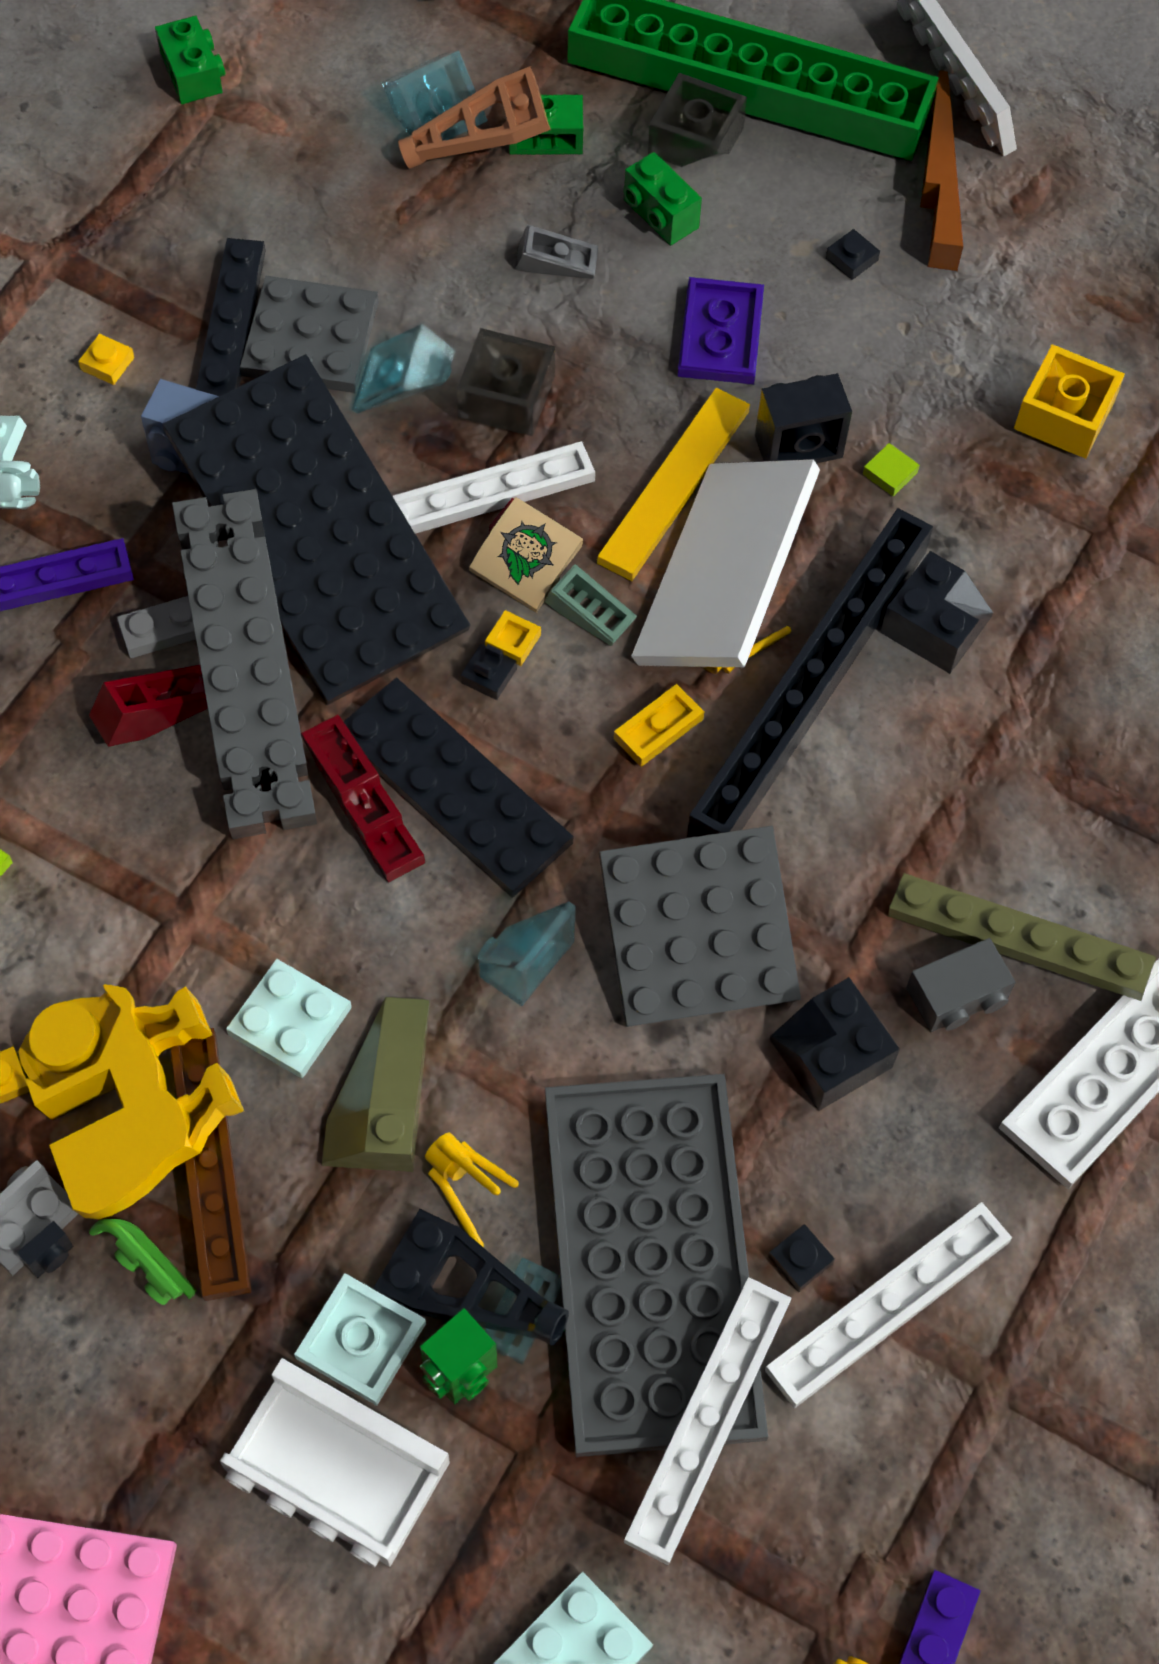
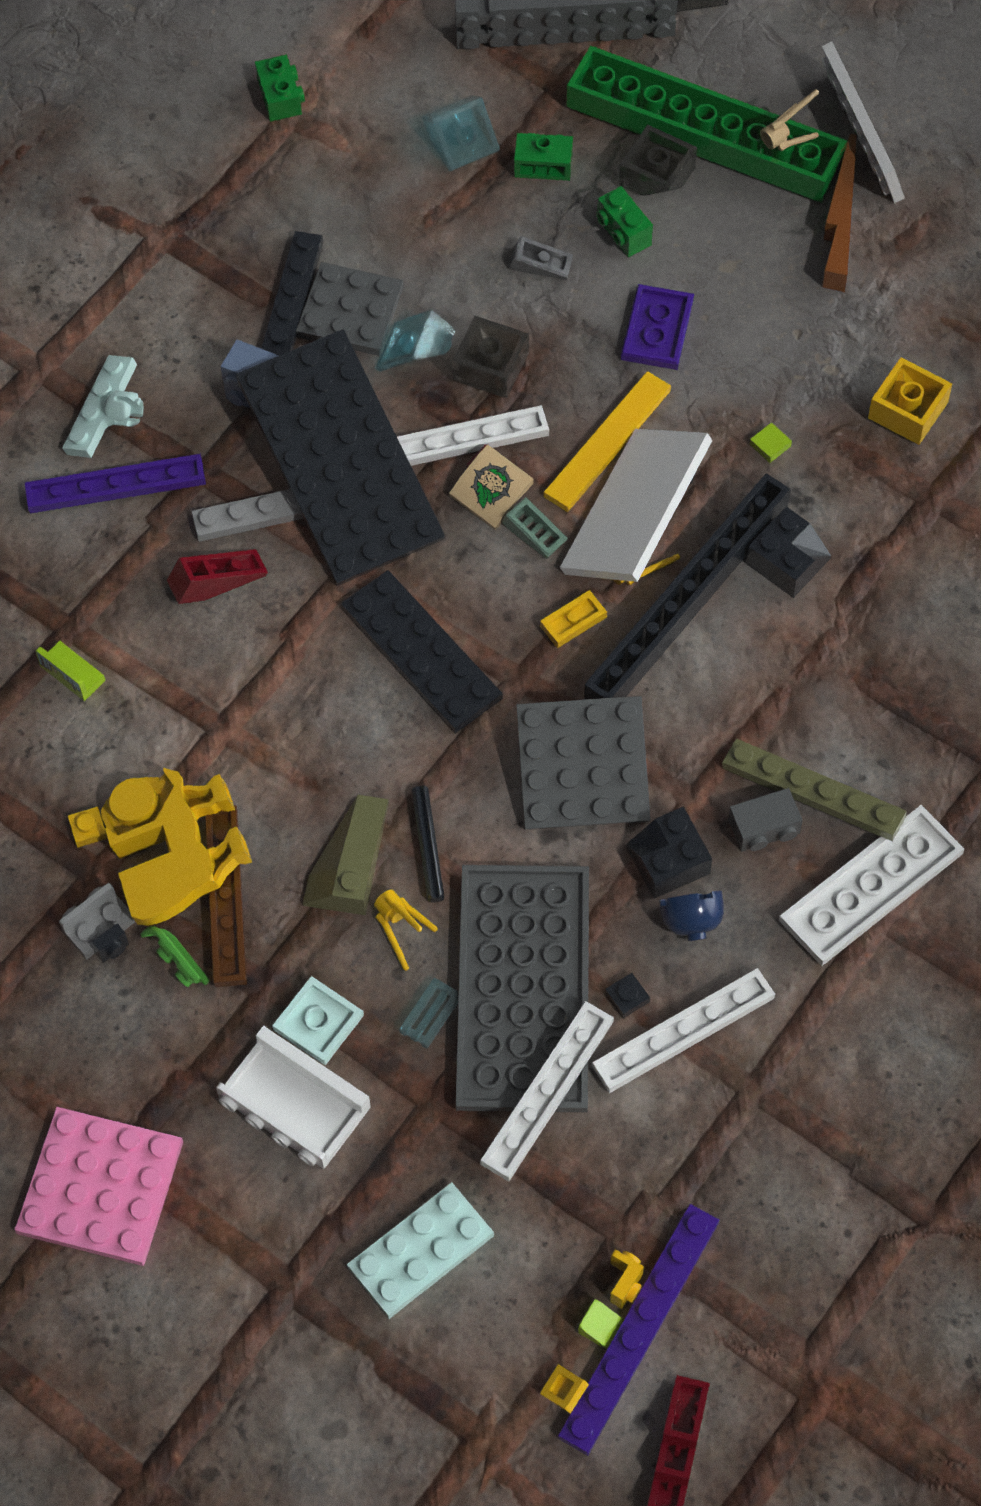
camera: 10 degrees right, 0 degrees up
(106, 359) = (198, 318): yellow plate -> none
(244, 663) = (279, 552): dark grey brick -> none
(289, 1018) = (289, 803): light aqua plate -> none
(363, 798) = (355, 654): dark red slope -> none
(420, 1260) = (367, 969): black plate -> none
(458, 1359) = (382, 1036): green brick -> none
(489, 671) = (455, 570): black tile -> none
(492, 1061) = (428, 844): none -> black axle
(514, 636) = (475, 547): yellow plate -> none
(522, 108) = (524, 146): nougat plate -> none
(527, 952) = (460, 771): clear light blue slope -> none
(803, 420) = (707, 402): black slope -> none
(850, 70) = (777, 132): none -> tan plant
(852, 254) = (765, 274): black plate -> none
(881, 1131) = (693, 914): none -> dark blue cylinder

